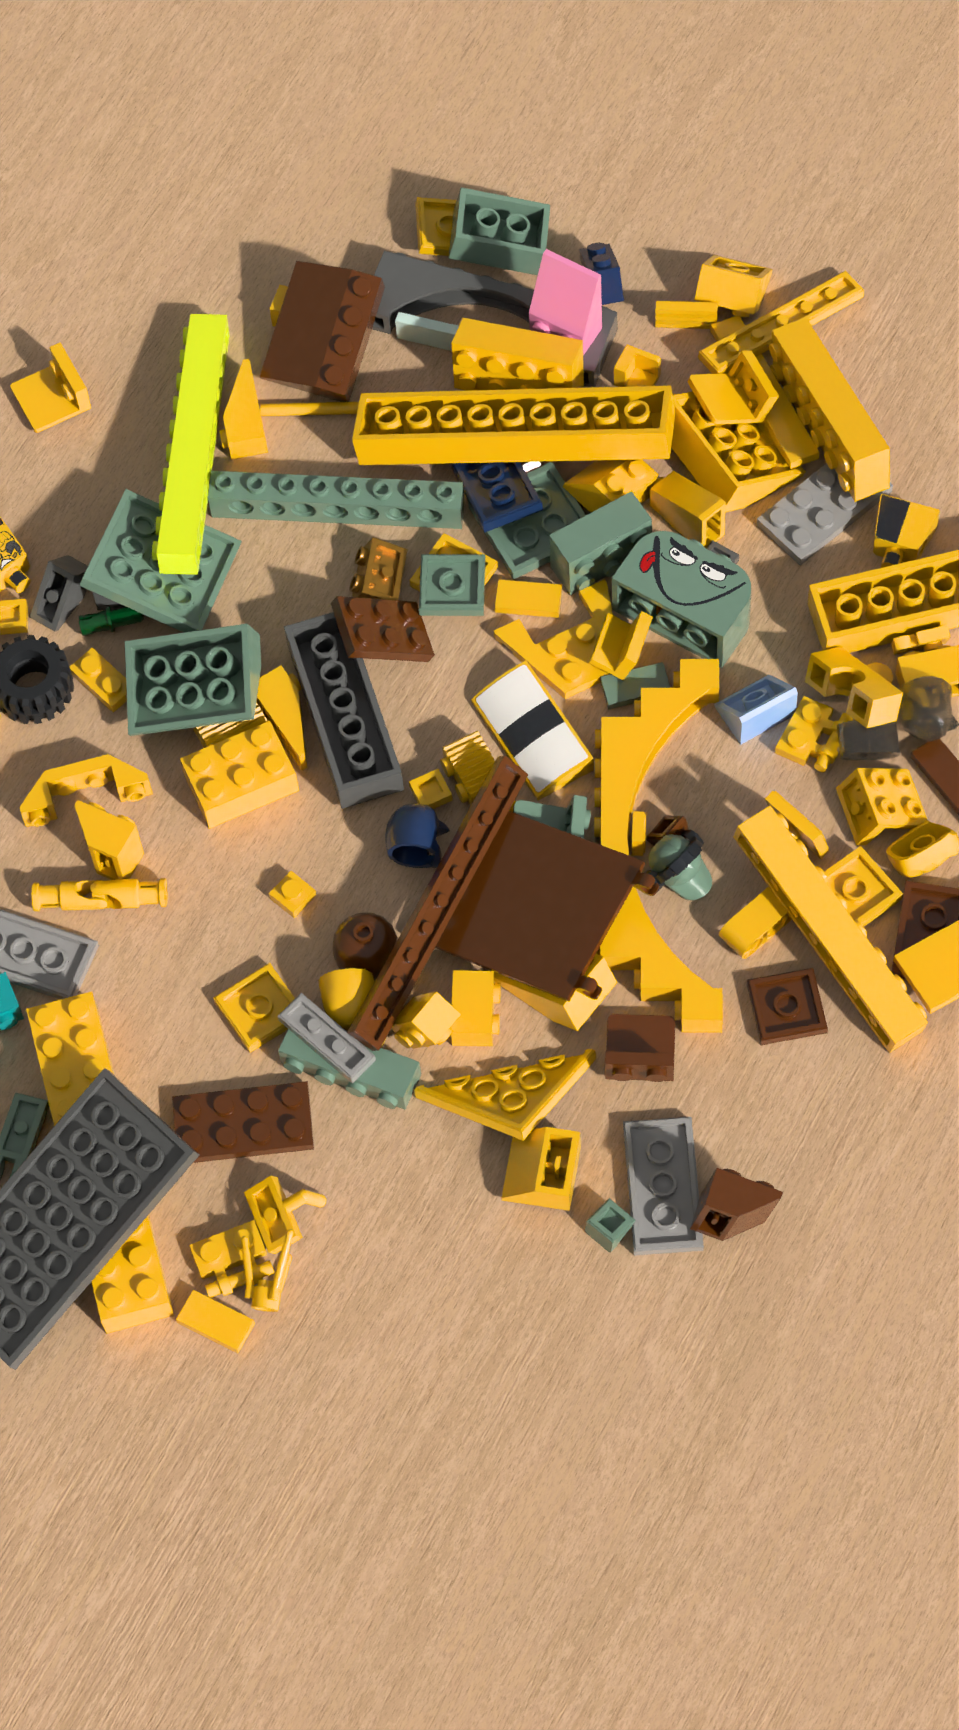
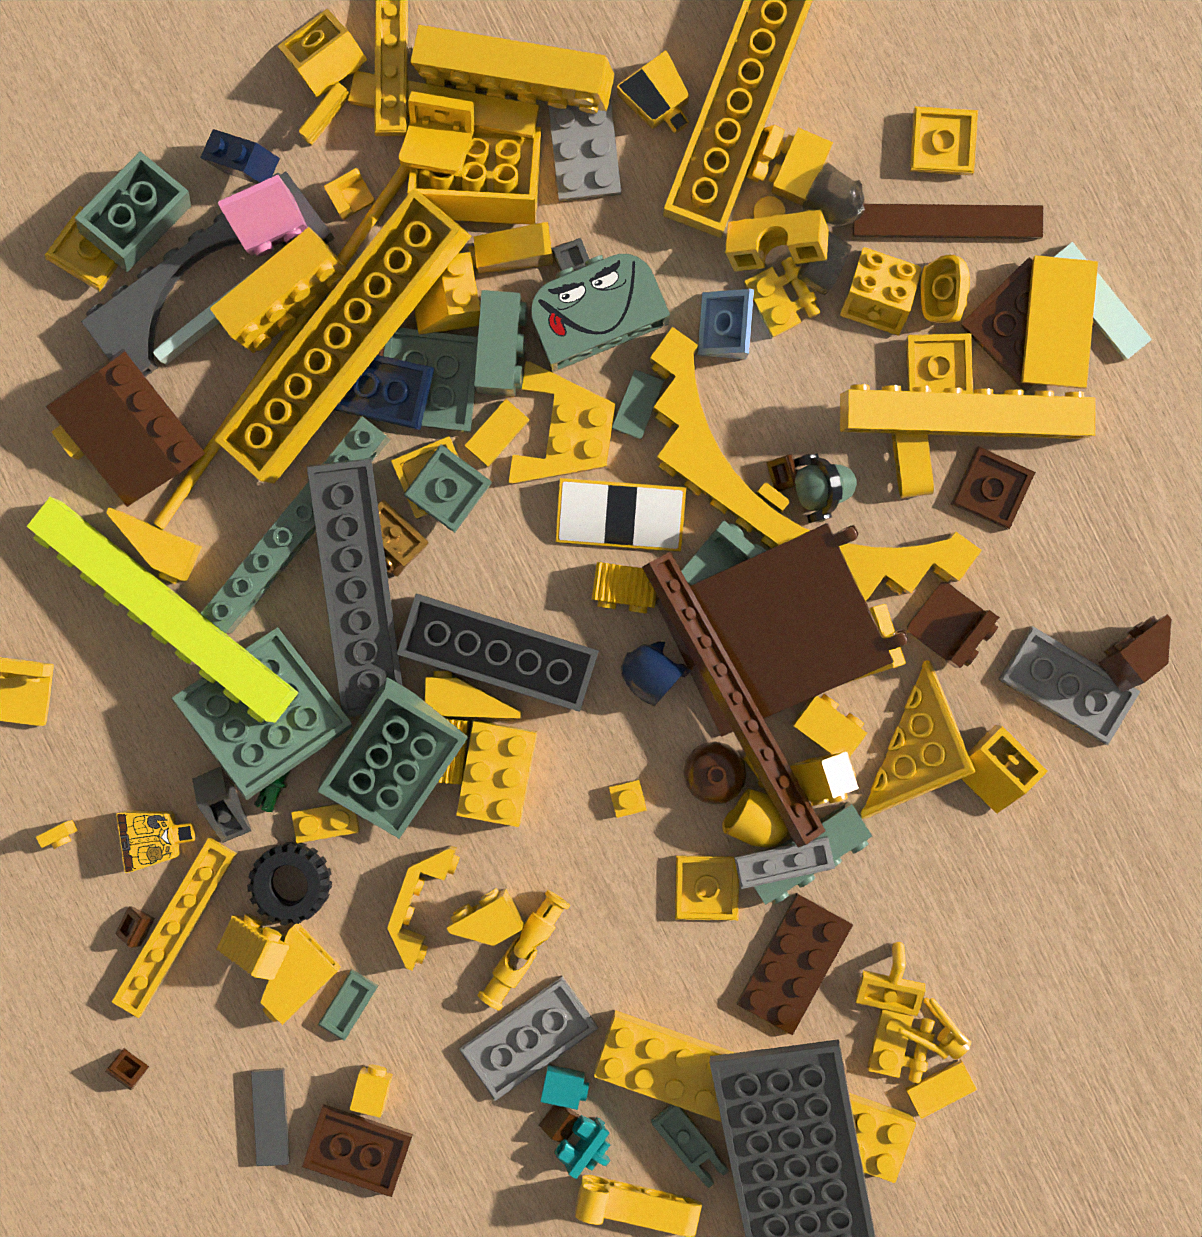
camera: 60 degrees left, 25 degrees up
(327, 556) = (354, 580): none -> dark grey plate
(382, 629) = (451, 574): reddish brown plate -> none
(431, 789) = (617, 631): yellow plate -> none
(609, 1225) = (1075, 748): sand green slope -> none
(620, 644) = (599, 392): yellow panel -> none
(799, 825) = (861, 373): yellow plate -> none

